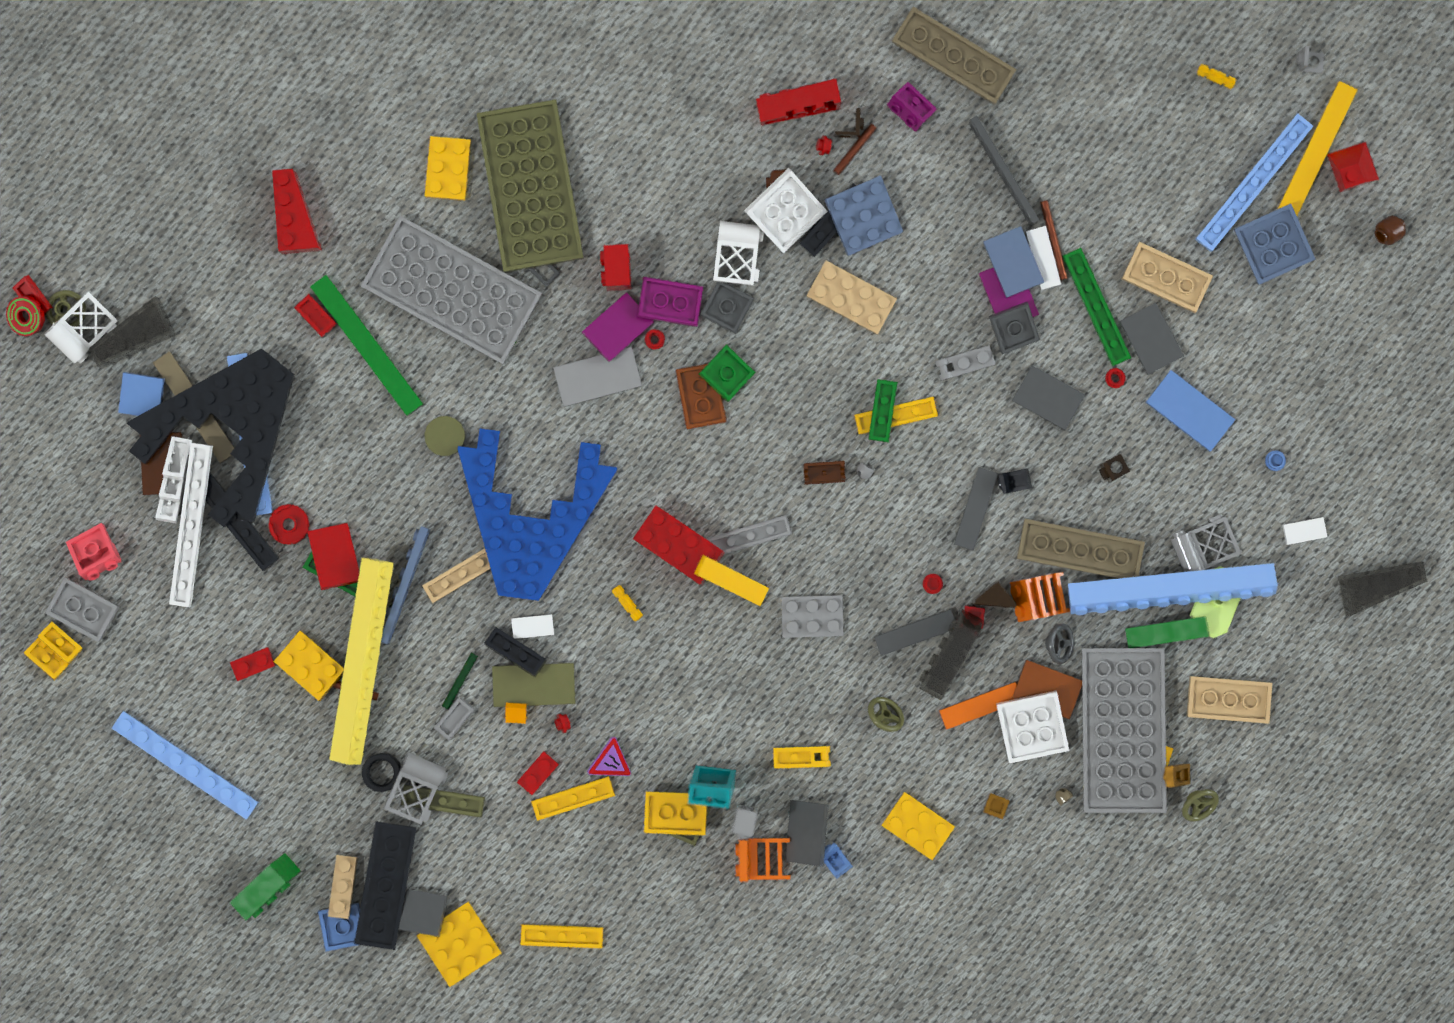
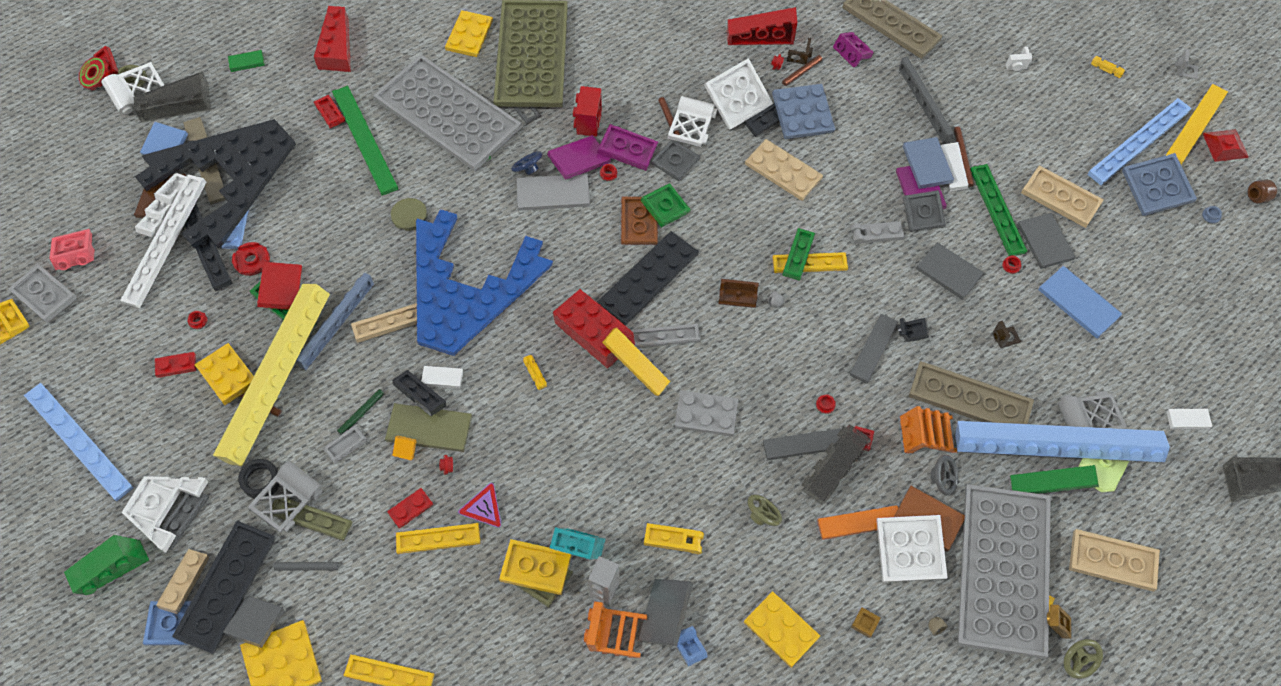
camera: 10 degrees right, 25 degrees down
(194, 259) = (246, 61): none -> green tile
(251, 611) = (197, 315): none -> red plate
(285, 817) = (153, 501): none -> white wing
(317, 824) = (184, 515): none -> dark grey tile
(453, 849) = (301, 566): none -> dark grey bar
(565, 348) = (528, 163): none -> dark blue piece
(709, 247) = (667, 113): none -> copper bar
(724, 467) = (648, 278): none -> black plate
(994, 596) = (886, 420): dark brown slope -> none
(1109, 94) = (1019, 61): none -> white bracket
(1275, 460) = (1160, 354): medium blue plate -> none
(1334, 270) = (1212, 214): none -> sand blue plate

